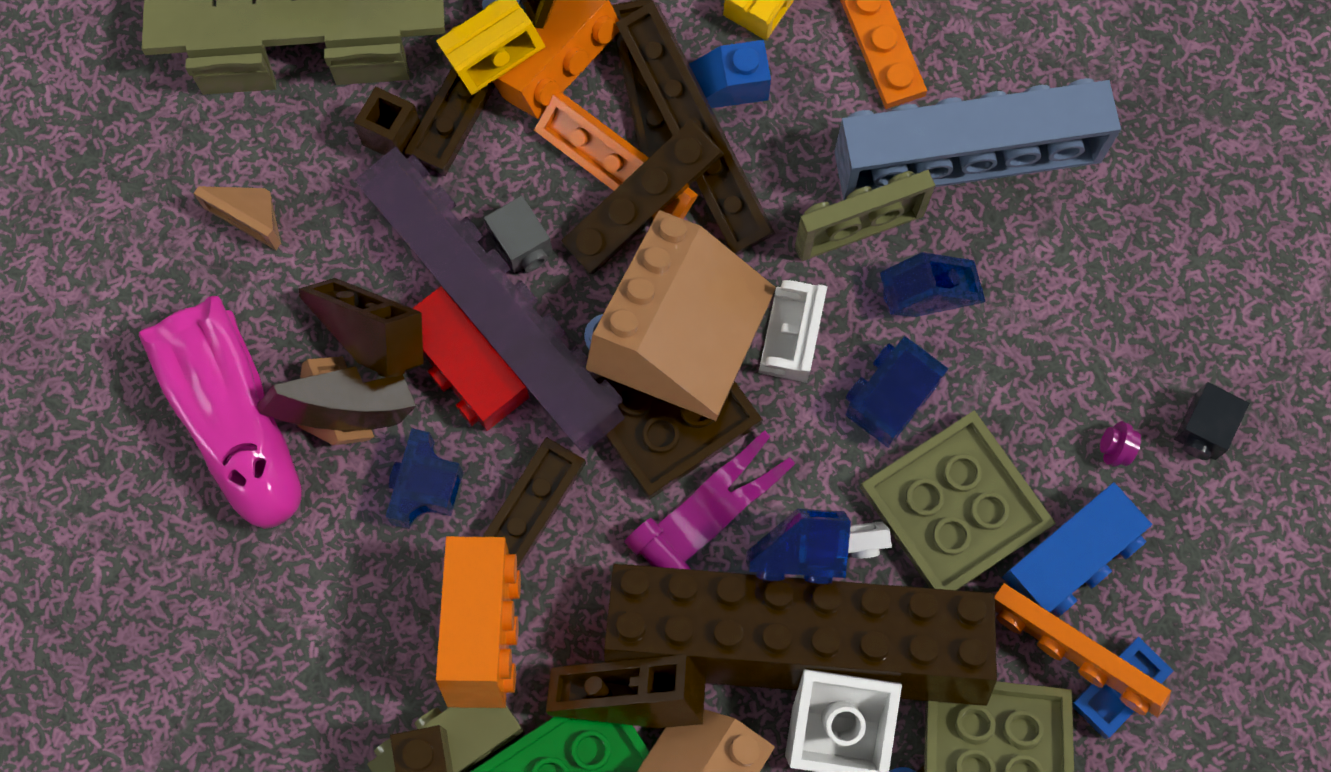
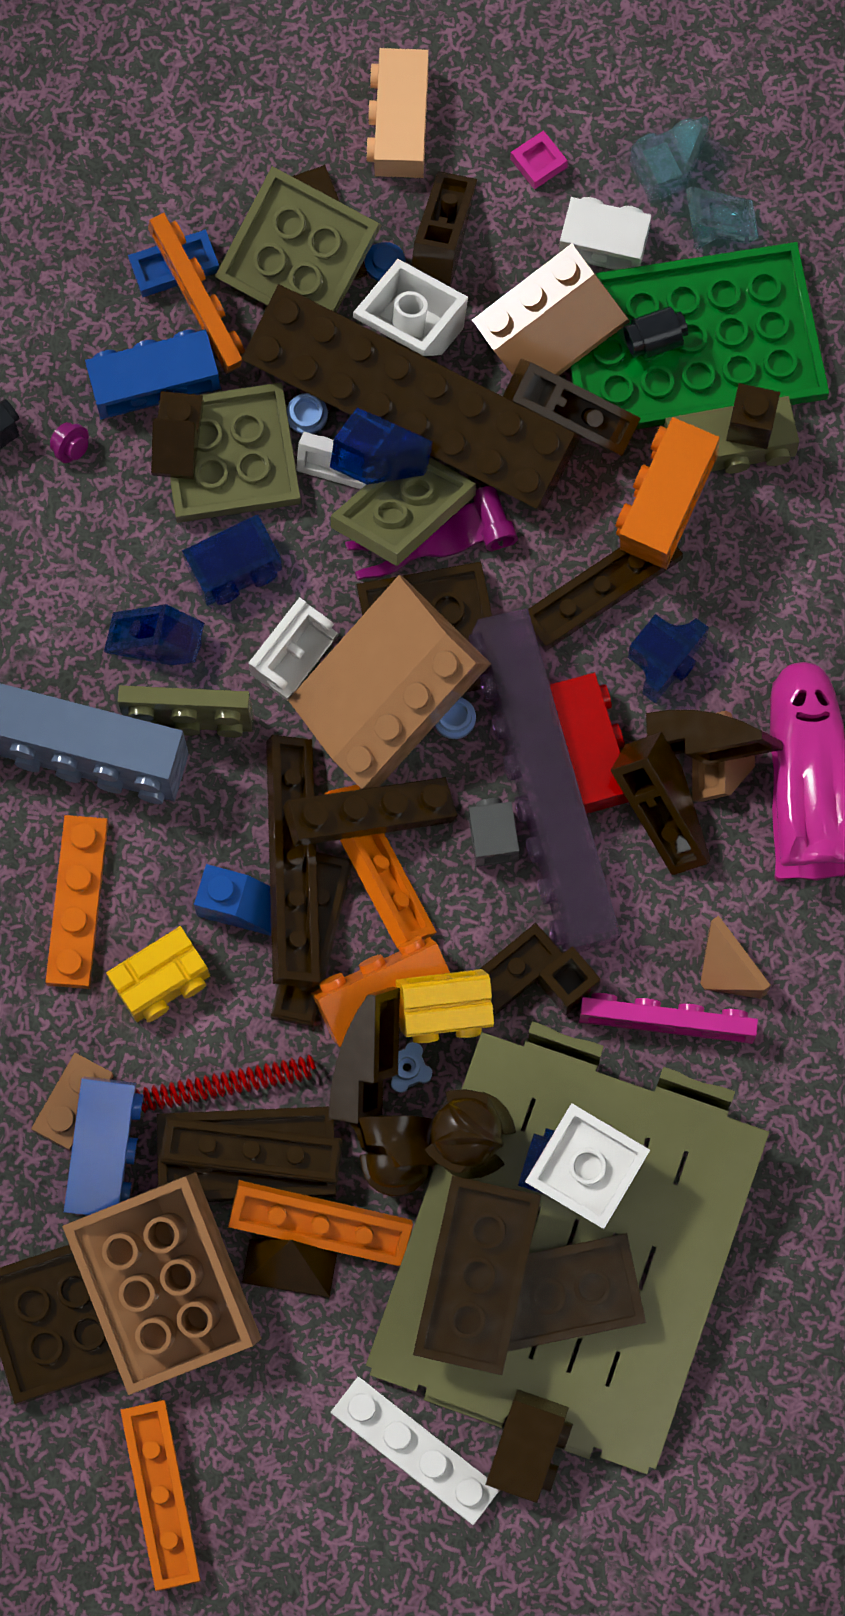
camera: 155 degrees left, 0 degrees up
(267, 140) = (686, 1020): none -> dark pink plate
(747, 498) = (403, 513): none -> olive plate
(900, 574) = (306, 413): none -> light blue plate
(1017, 490) = (176, 435): none -> dark brown slope

